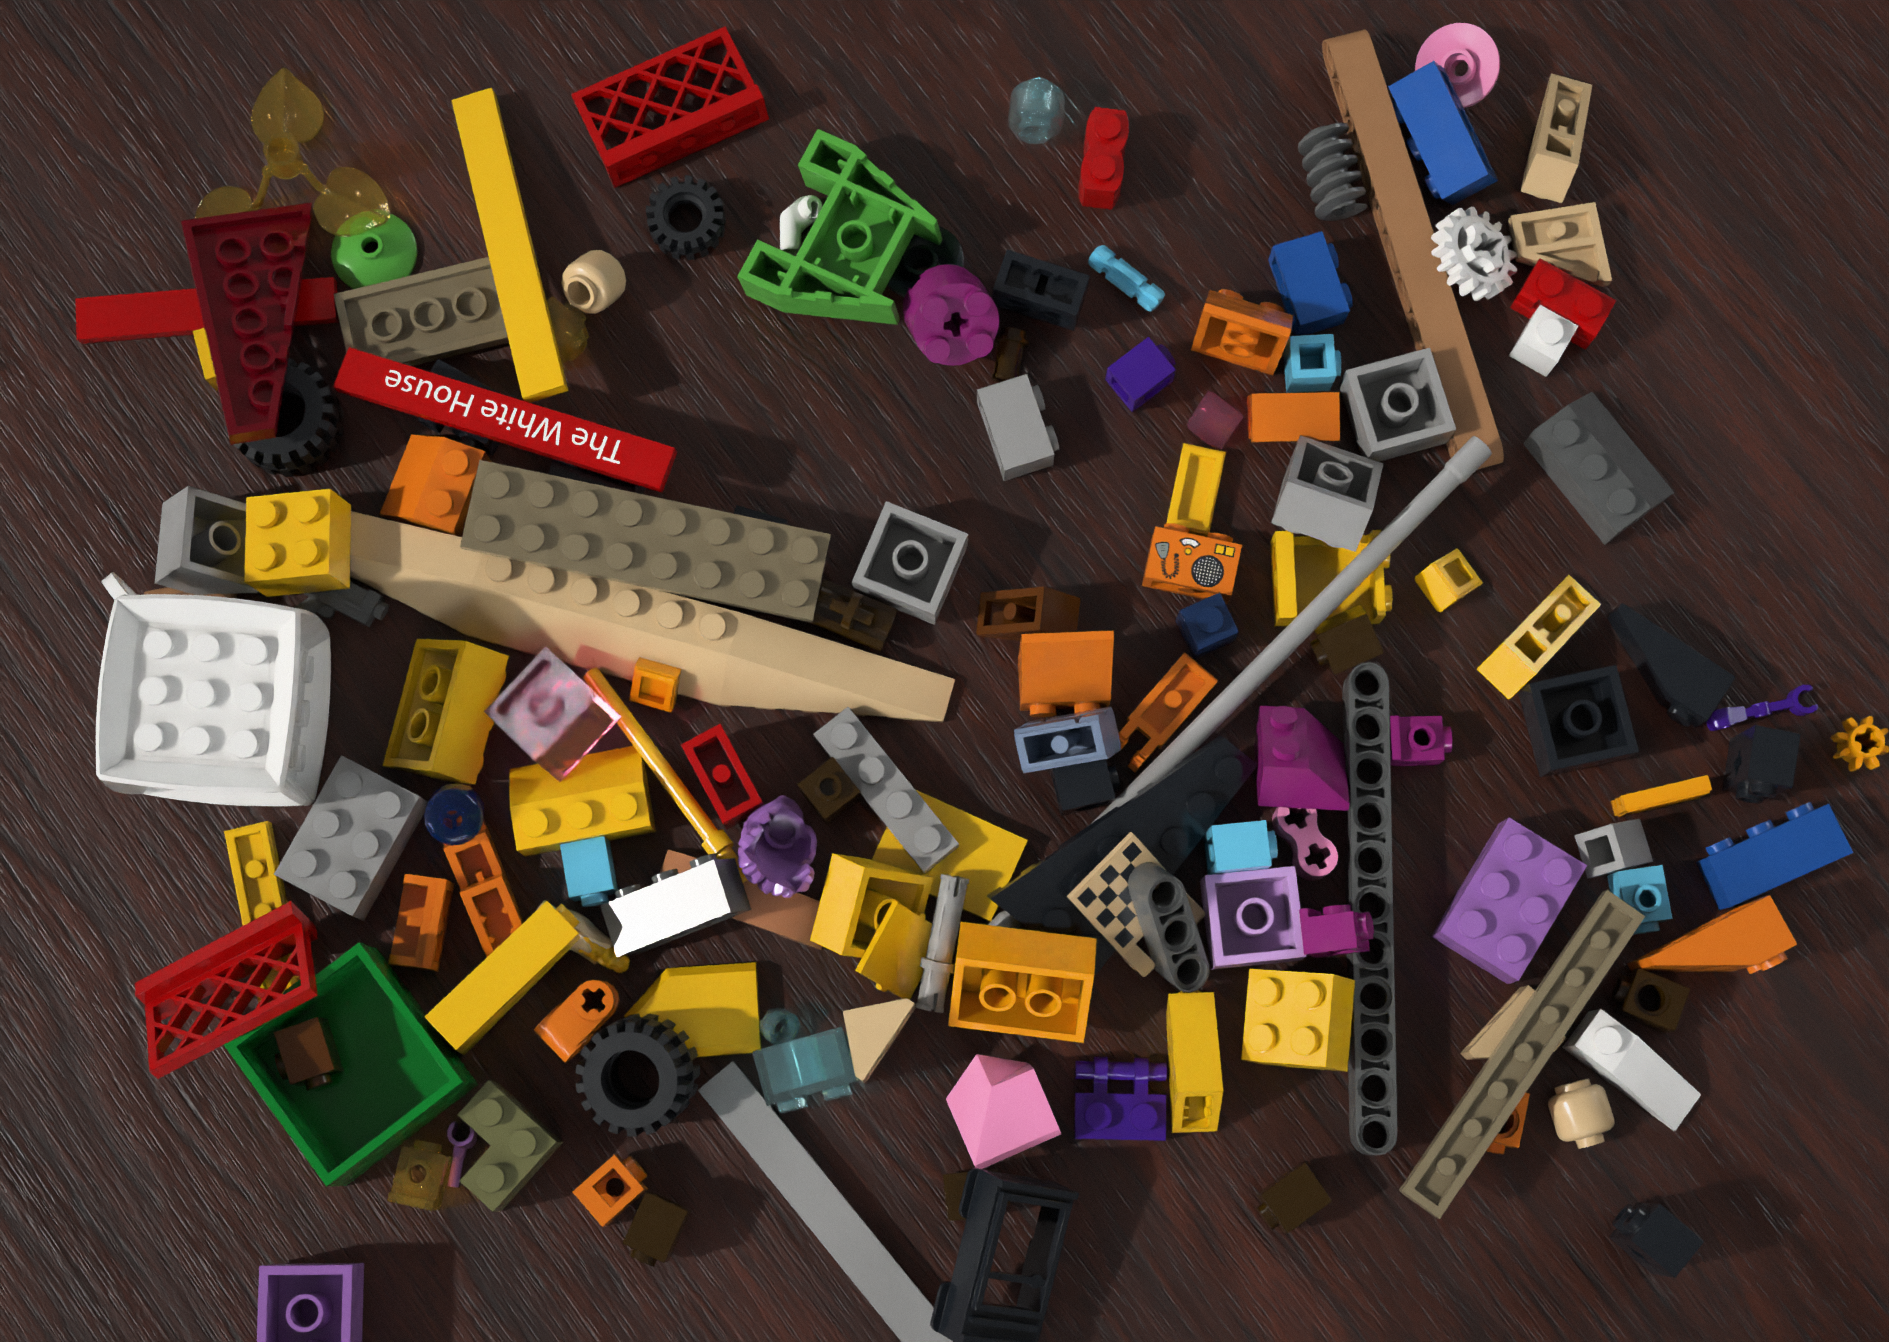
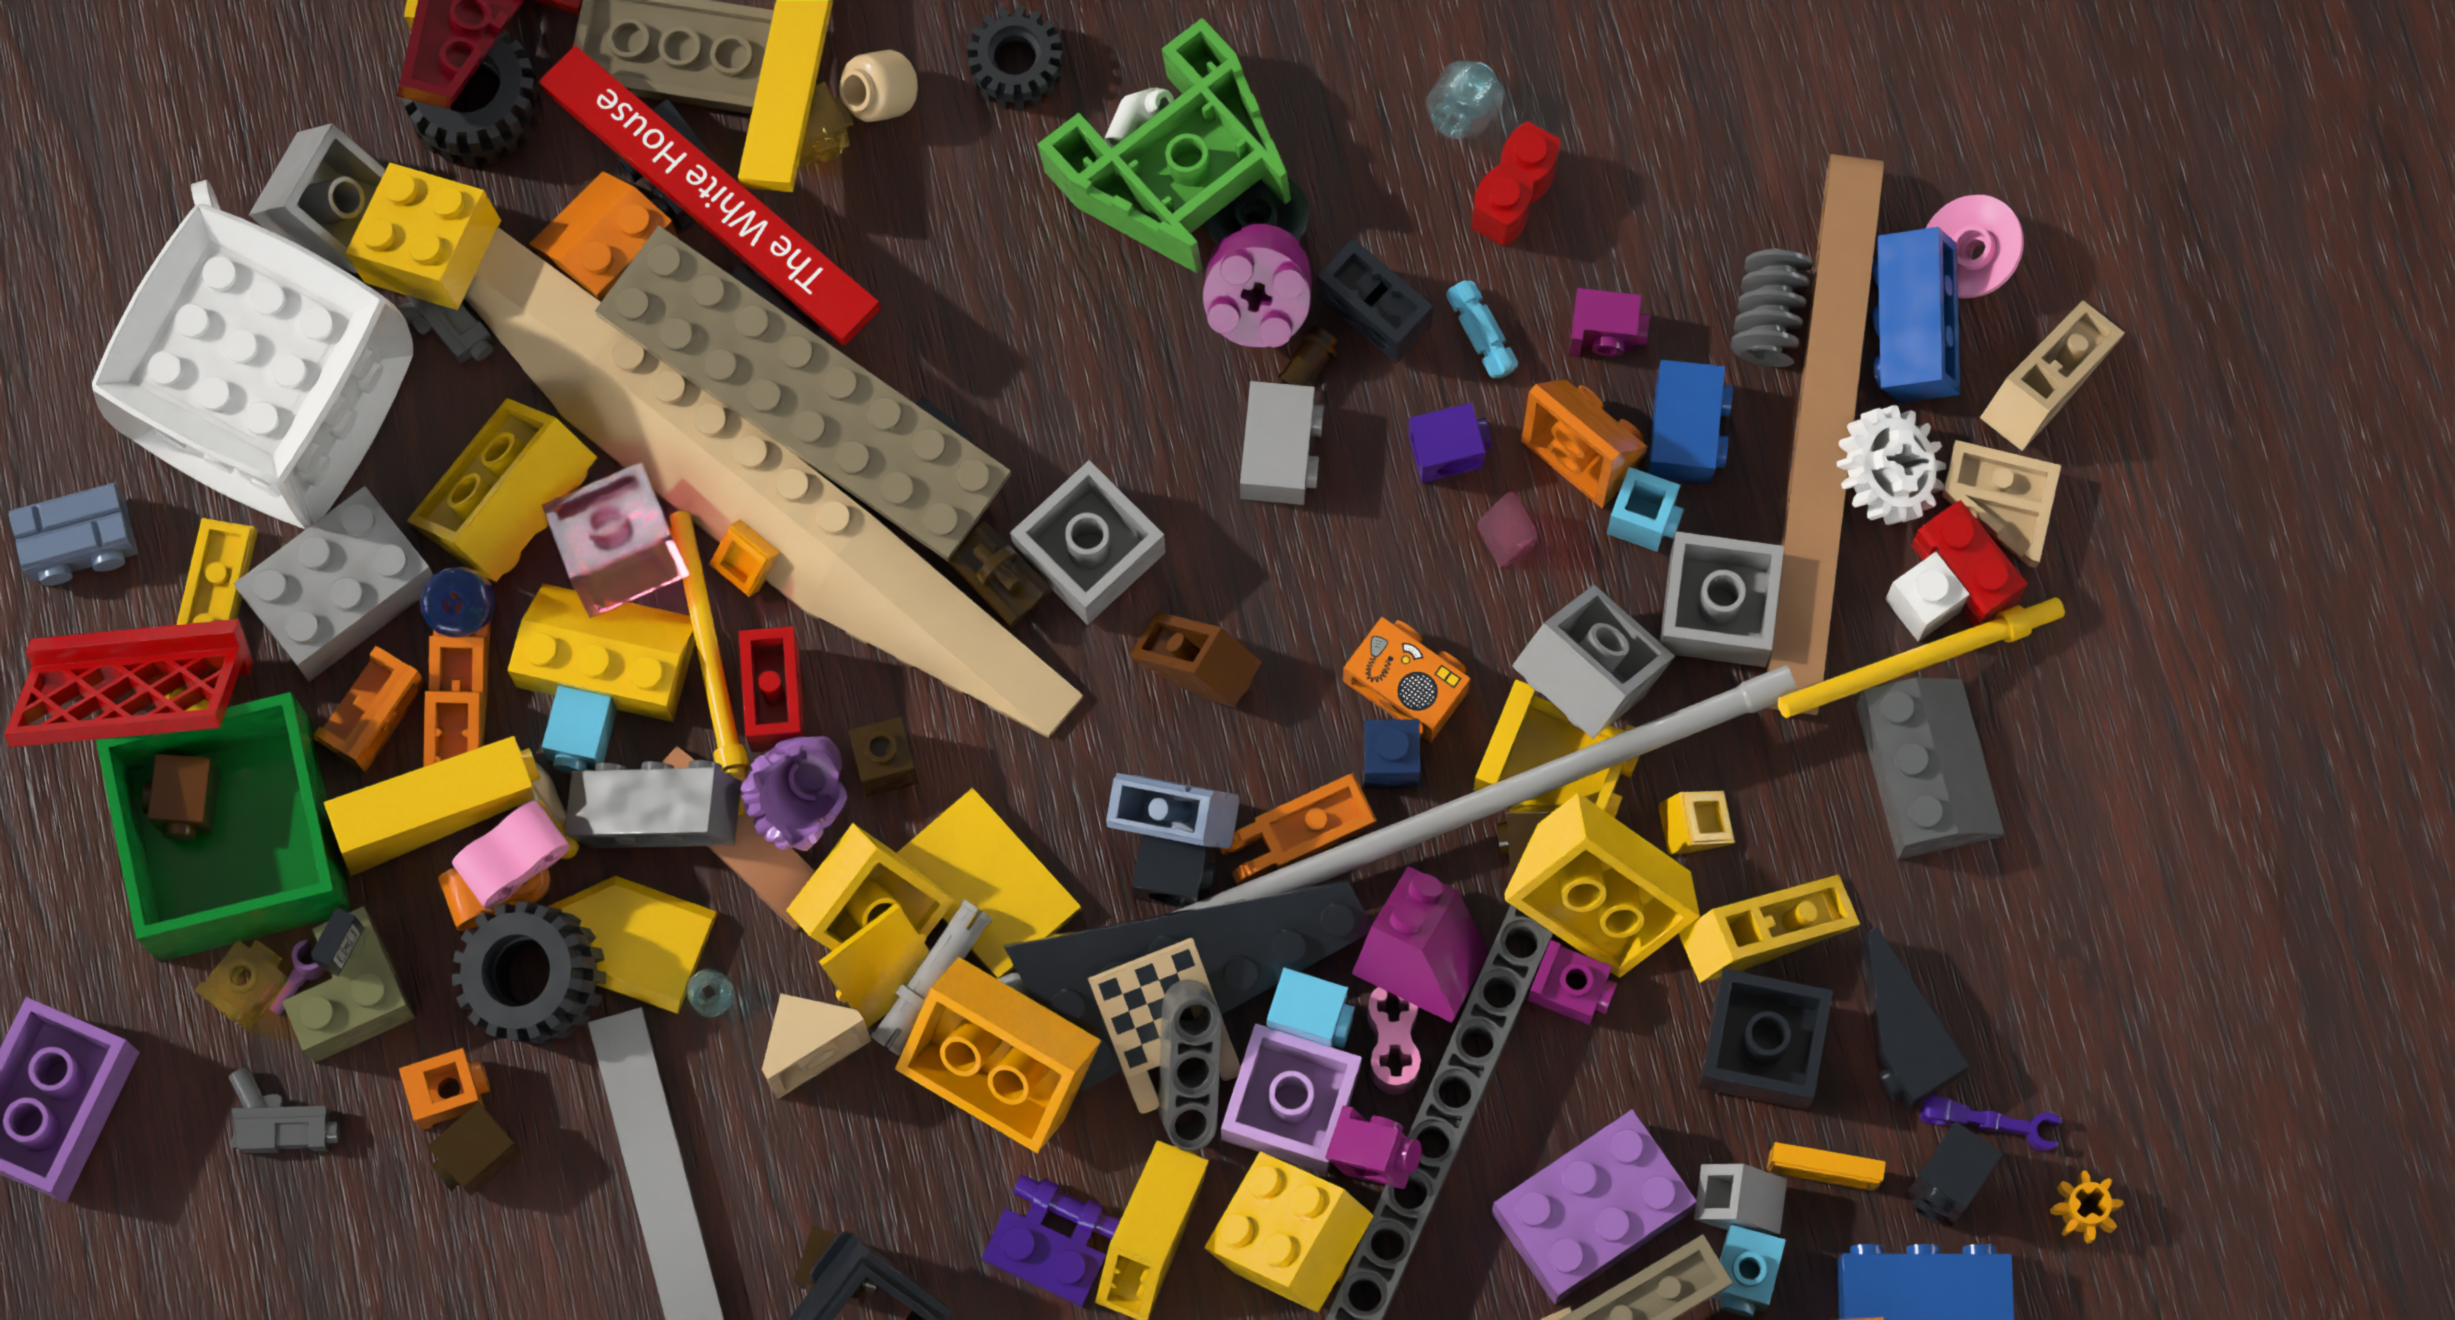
camera: 25 degrees right, 5 degrees down
(130, 887) = (73, 534): none -> sand blue brick
(483, 1119) = (337, 941): none -> black tile
(491, 1276) = (268, 1126): none -> dark grey piece
(585, 992) = (510, 854): none -> bright pink axle
(806, 1069) = (712, 1047): clear light blue brick -> none
(887, 790) = (947, 782): light grey plate -> none
(1000, 1109) = (911, 1185): bright pink slope -> none
(1065, 671) = (1202, 731): orange slope -> none
(1196, 488) = (1453, 598): yellow tile -> none
(1217, 234) = (1607, 322): none -> magenta brick
(1289, 415) = (1594, 557): orange hinge -> none
(1412, 659) = (1601, 886): none -> yellow slope
(1608, 338) = (2007, 626): none -> yellow bar

